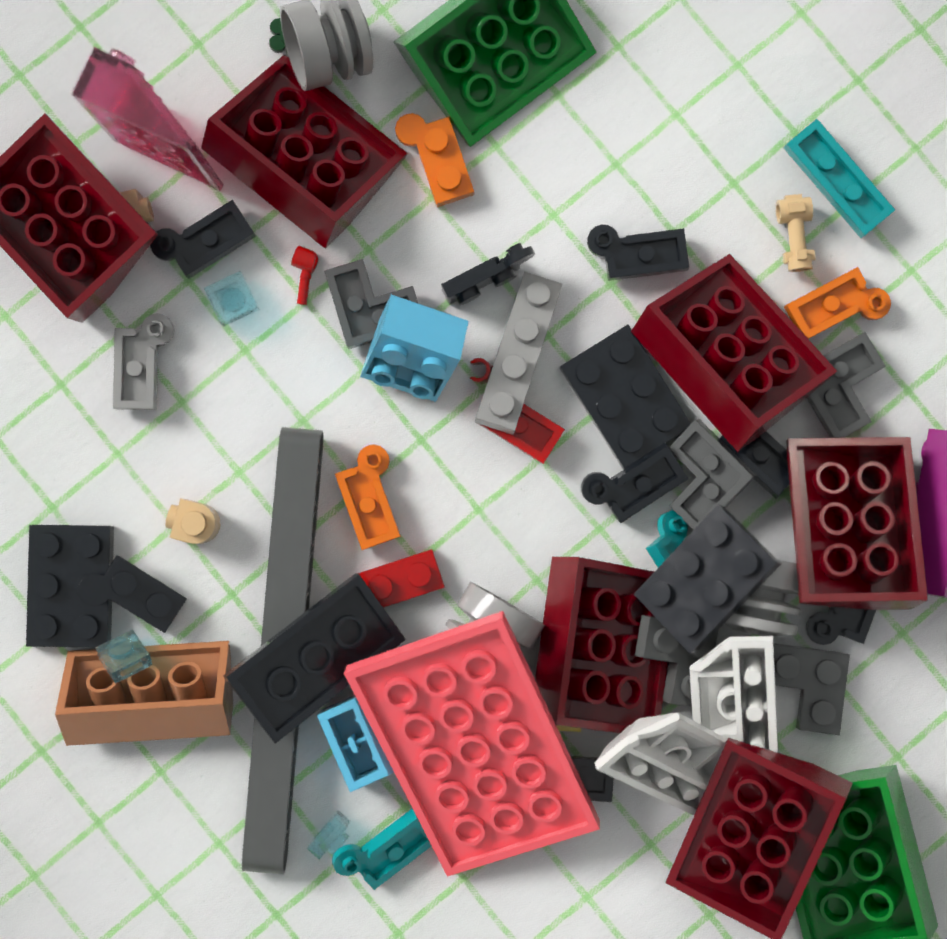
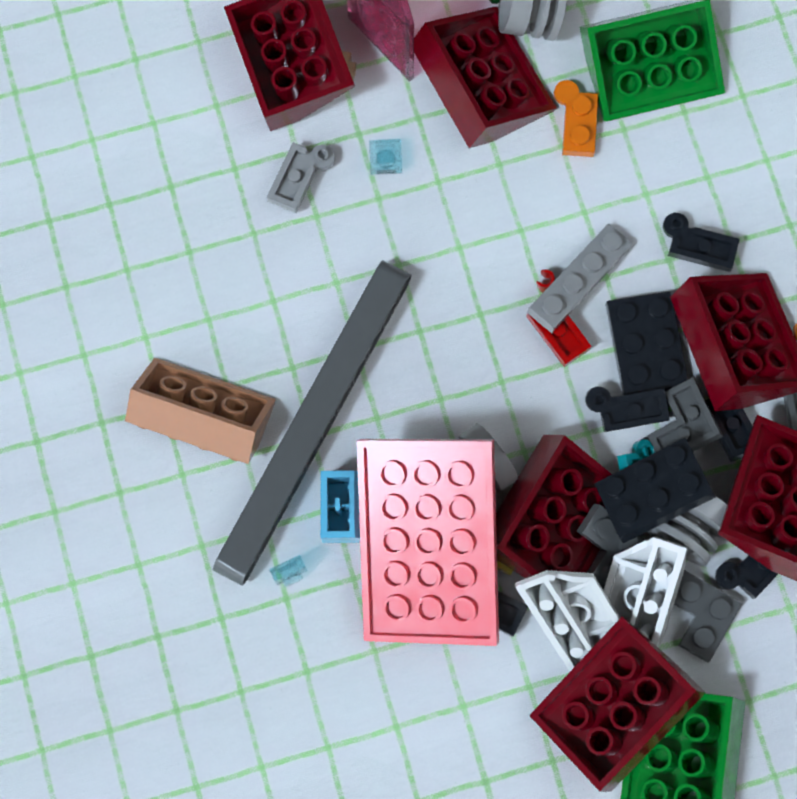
camera: 25 degrees right, 10 degrees down
(56, 564) = (177, 311): black plate -> none
(123, 656) = (195, 374): clear light blue plate -> none
(134, 592) = (223, 332): black hinge -> none
(192, 522) = (287, 302): tan plate -> none
(204, 240) = (383, 109): black hinge -> none
(306, 261) = (451, 152): red hand -> none
(308, 658) = (328, 429): black plate -> none
(356, 303) = (479, 209): dark grey plate -> none
(367, 499) = (422, 337): orange hinge -> none
(385, 852) = (326, 601): teal hinge -> none
(404, 578) = (421, 408): red plate -> none
(414, 348) = (504, 242): medium azure slope -> none
(498, 271) = (563, 215): black hinge -> none

